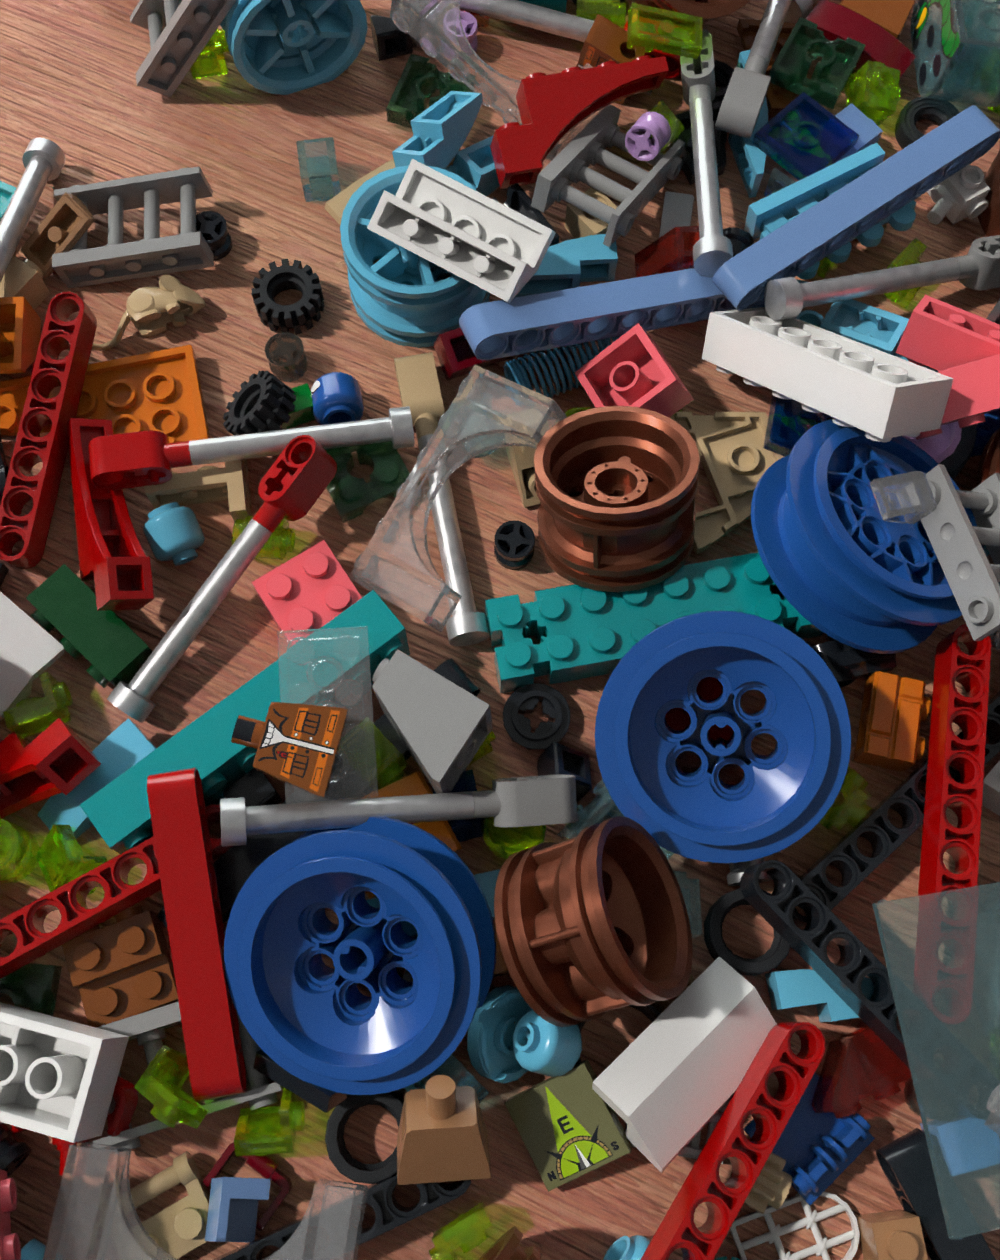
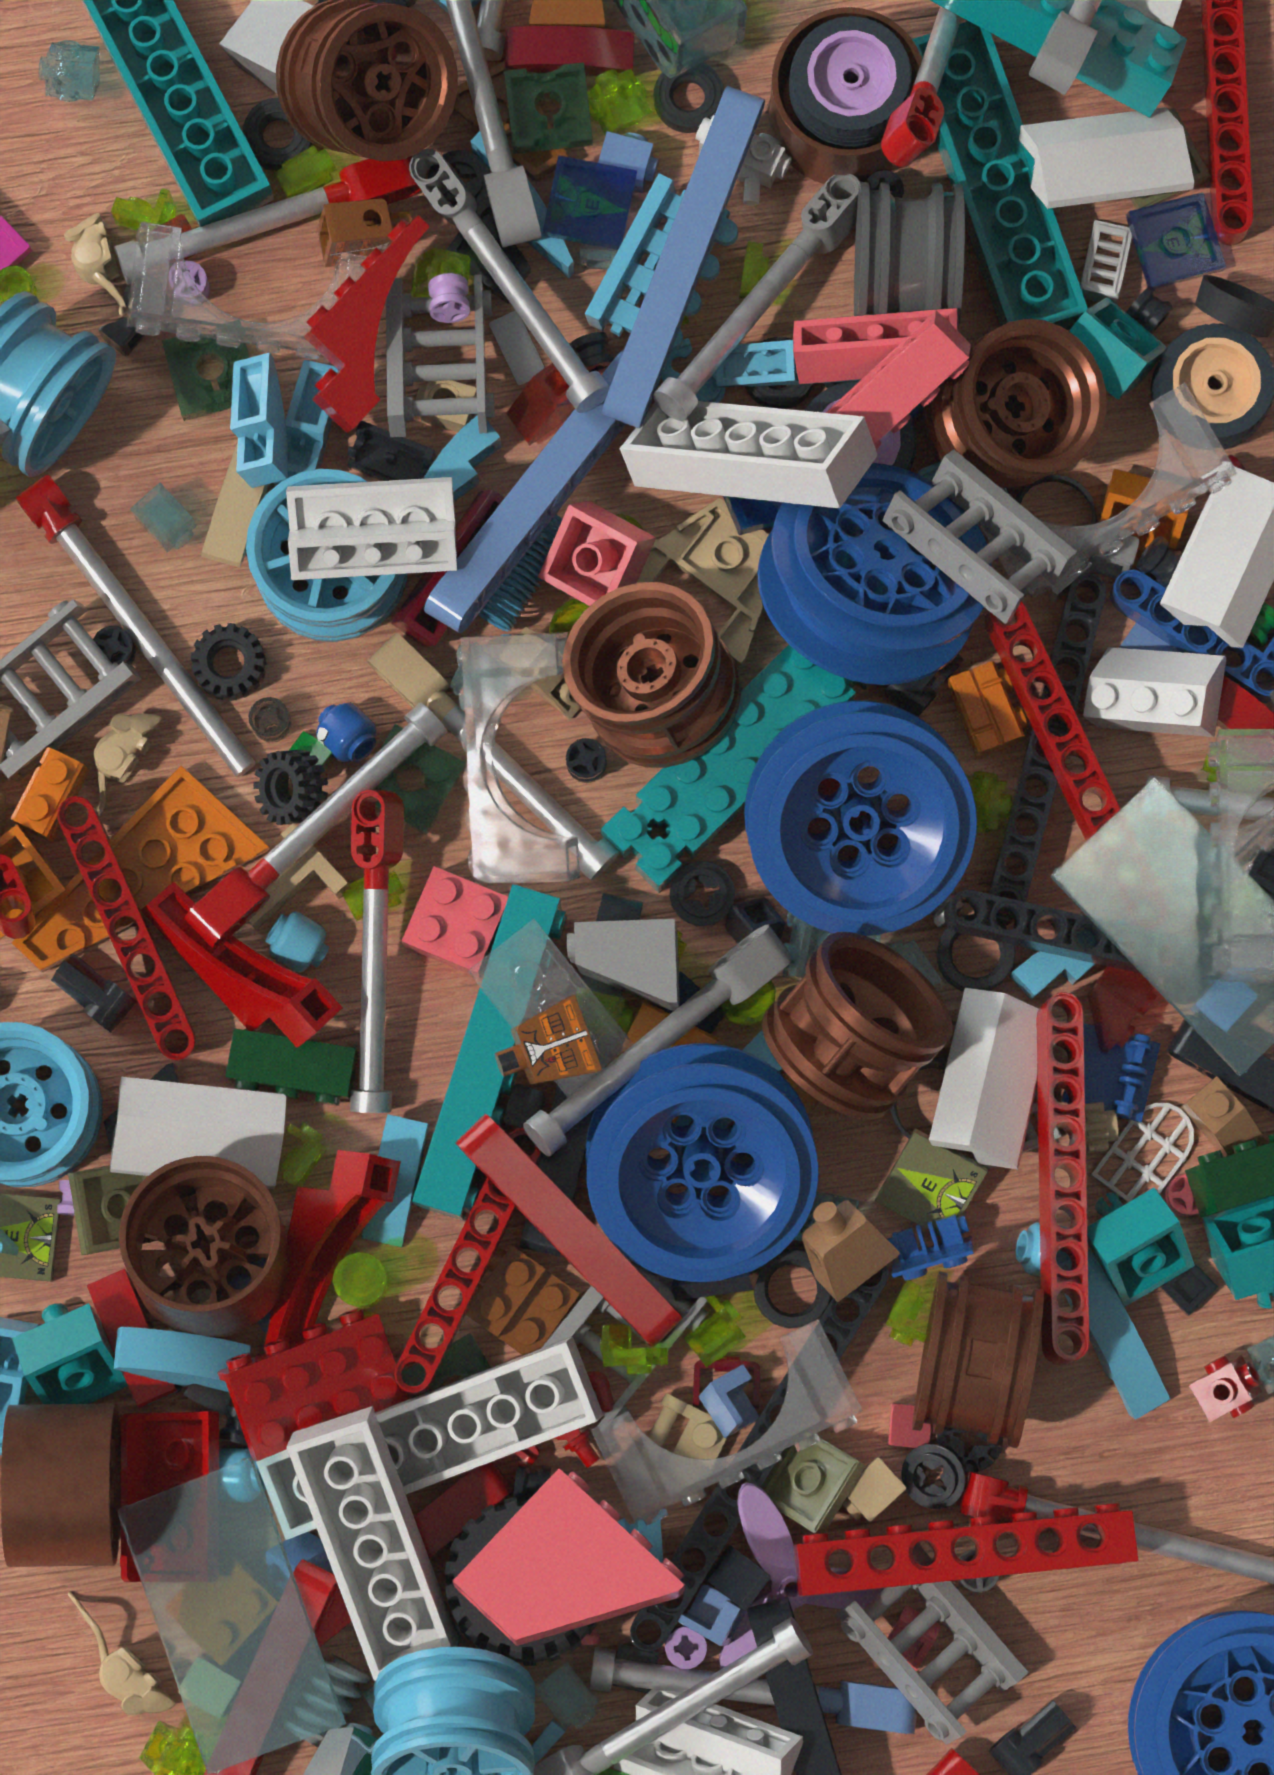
camera: 30 degrees left, 10 degrees up
(63, 859) = (417, 1255): clear neon green bracket -> none
(90, 285) = (47, 789): none -> orange brick
(240, 118) = (50, 510): none -> flat silver piece
(492, 1035) = (844, 1151): medium azure tile -> none
(540, 1211) = (951, 1252): none -> blue hinge
(546, 1047) = (879, 1138): medium azure head -> none
(664, 31) = (399, 186): clear neon green plate -> none
(903, 497) = (883, 538): clear slope -> none

